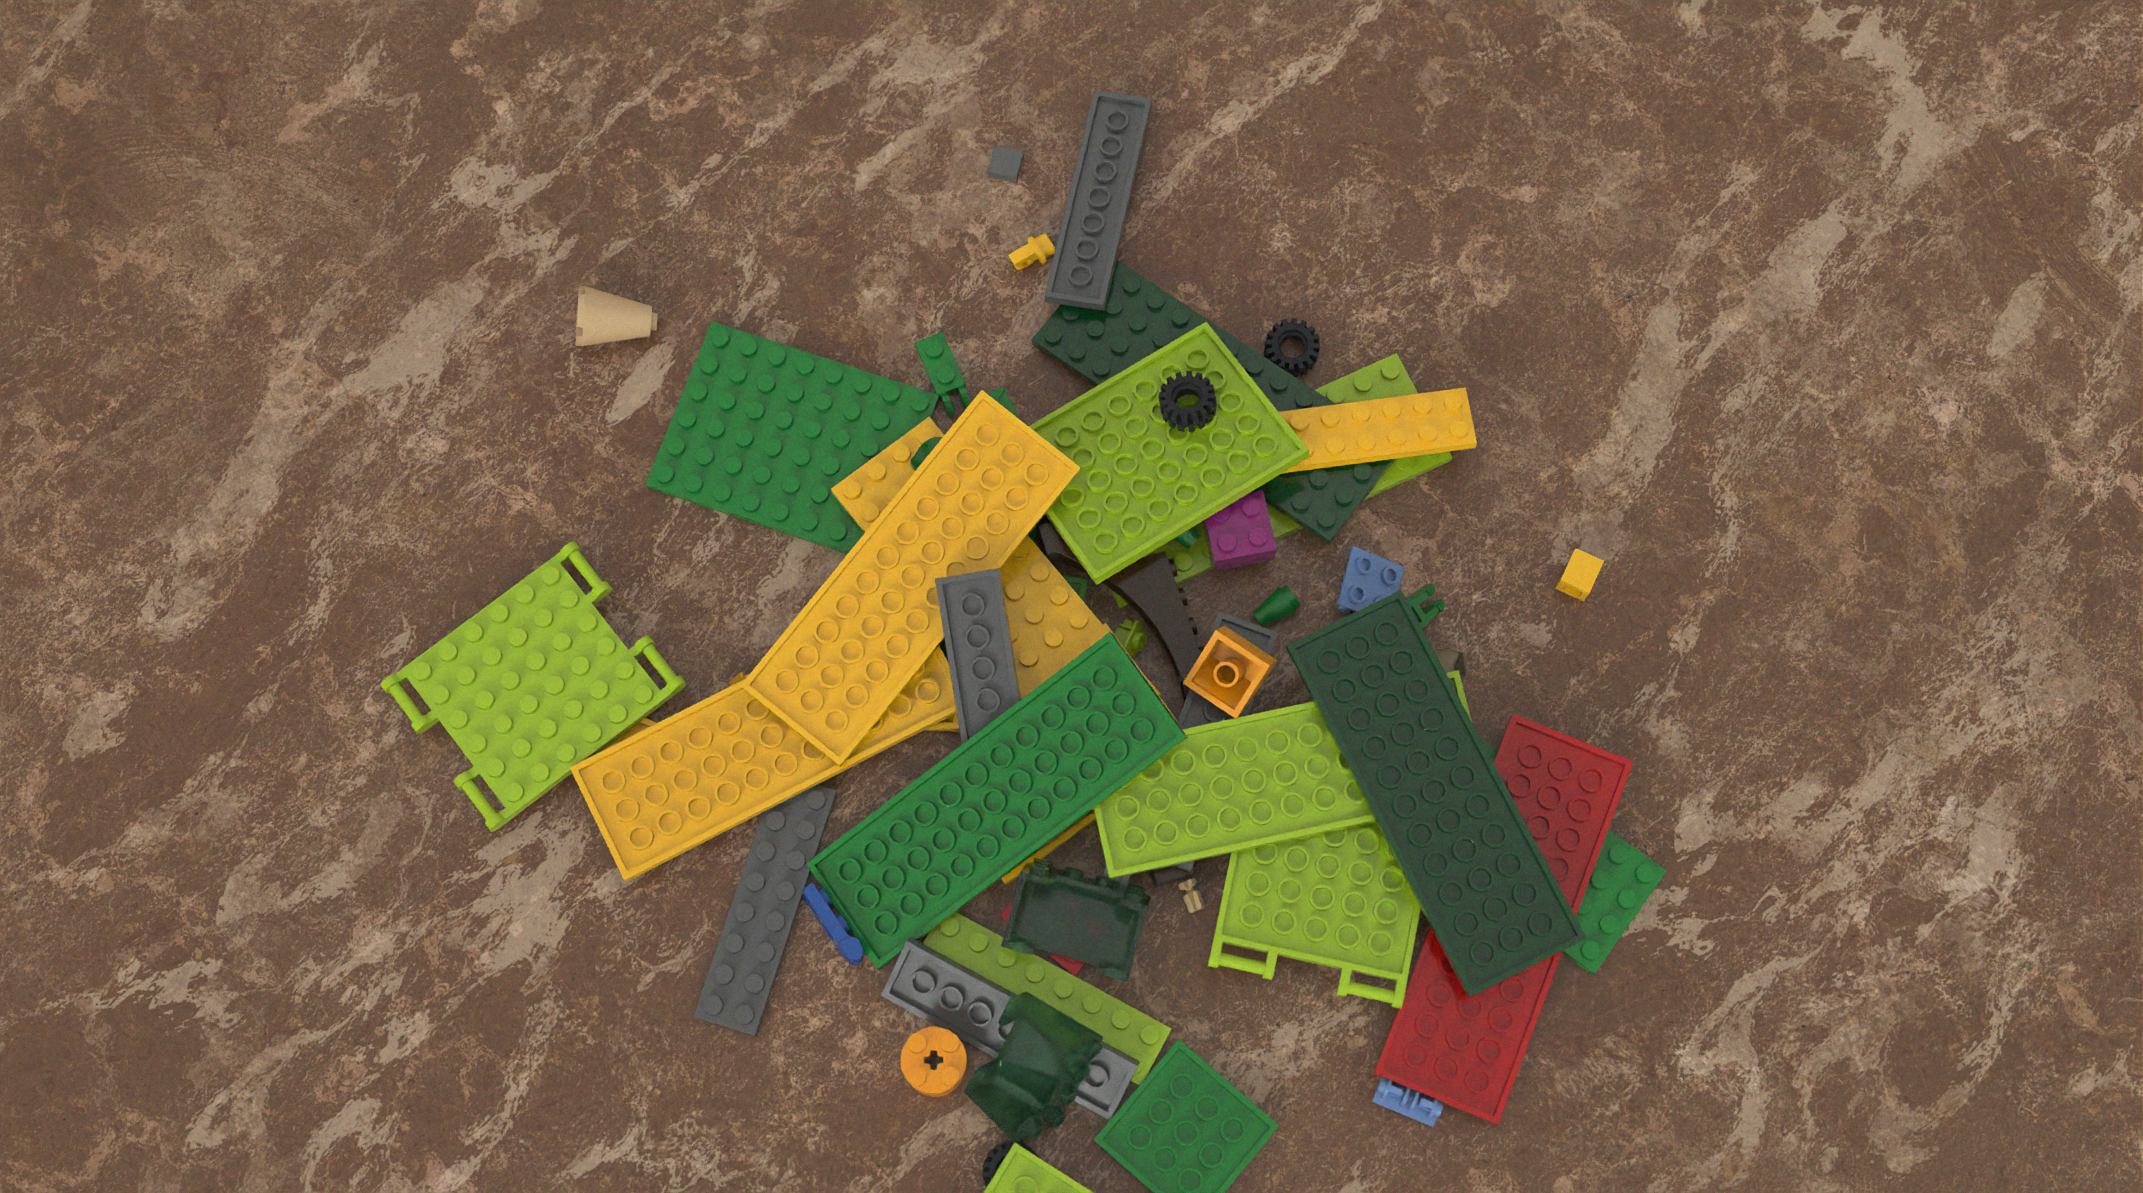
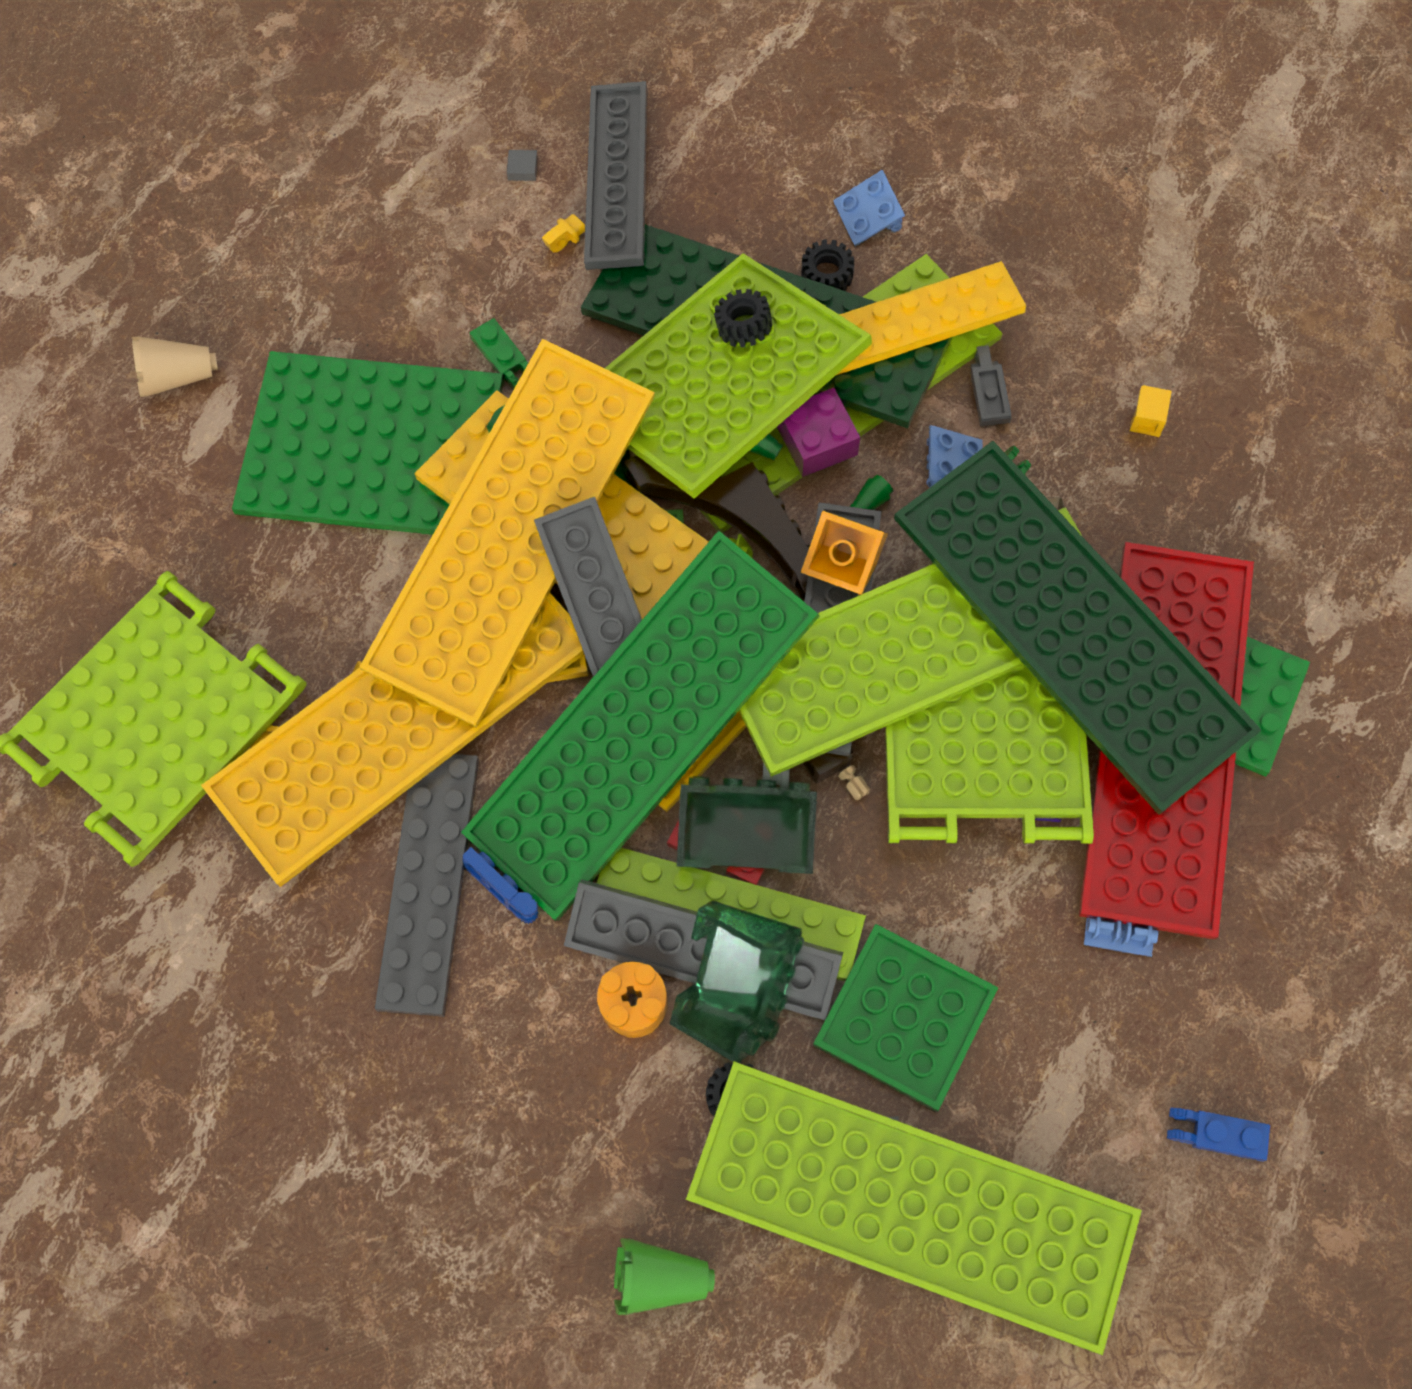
camera: 10 degrees left, 5 degrees down
(1350, 290) = (870, 208): none -> medium blue hinge
(1423, 516) = (989, 389): none -> dark grey hinge

